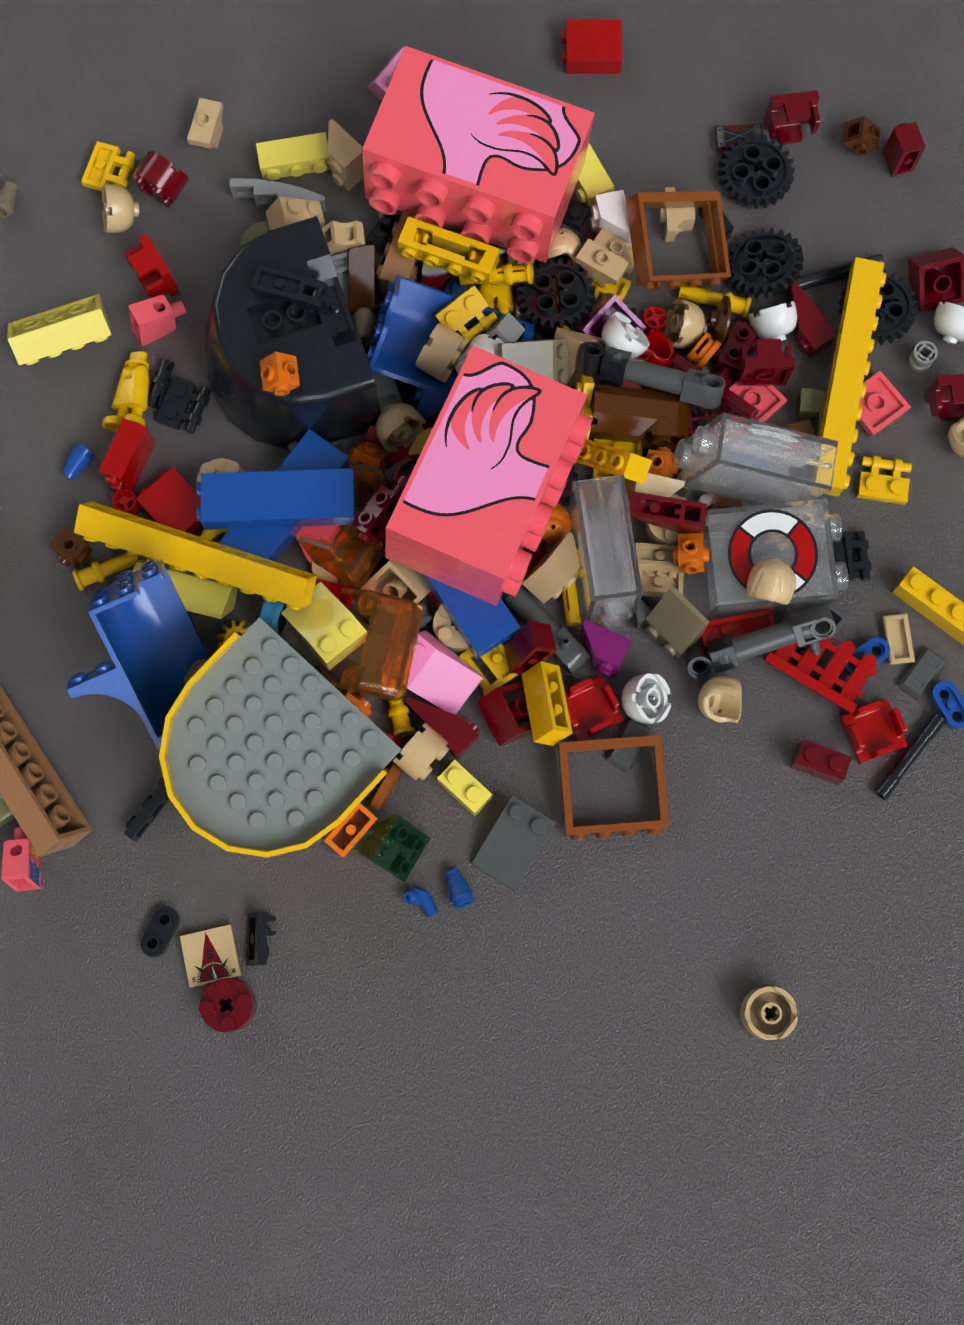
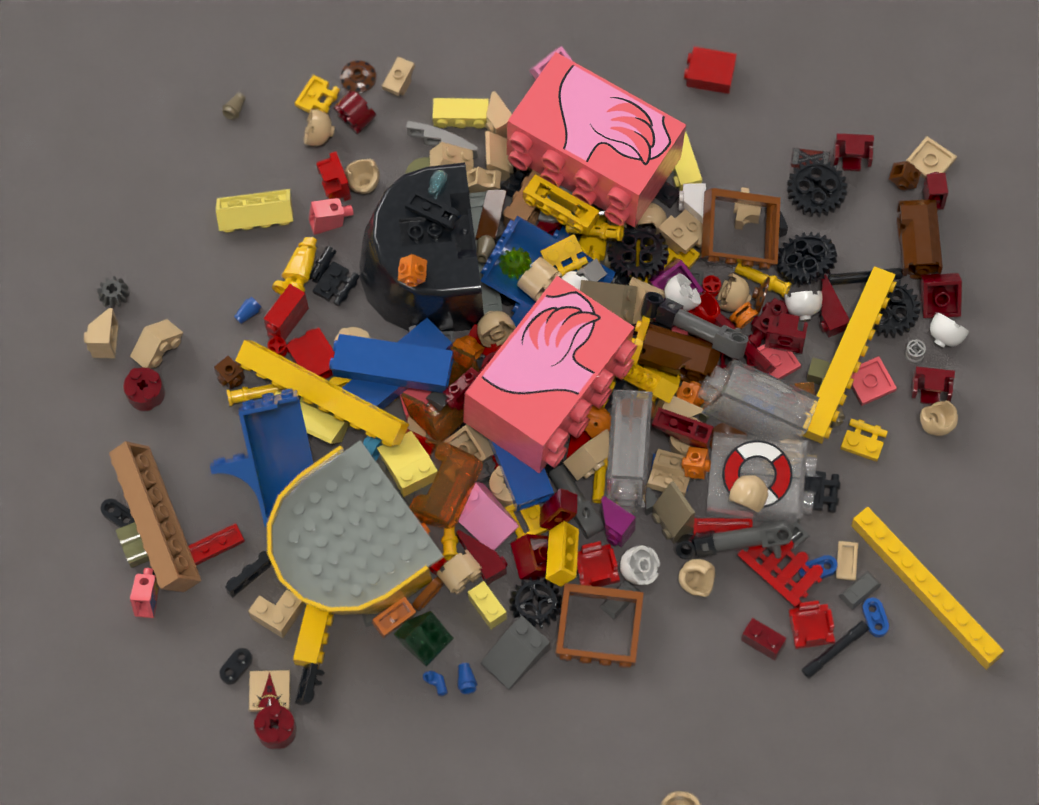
camera: 15 degrees right, 10 degrees down
(100, 776) = (216, 544): none -> red plate
(159, 141) = (361, 82): none -> reddish brown dish
(187, 259) = (362, 176): none -> tan piece
(201, 859) = (277, 617): none -> tan brick
(250, 883) = (312, 636): none -> yellow brick
(286, 247) = (437, 181): none -> clear light blue cylinder
(345, 534) = (437, 400): none -> dark grey slope
(352, 201) = (497, 155): none -> tan slope
(407, 336) = (515, 262): none -> clear neon green gear
(536, 766) = (543, 601): none -> black gear
(886, 109) = (931, 158): none -> tan tile
(897, 211) = (919, 237): none -> reddish brown brick

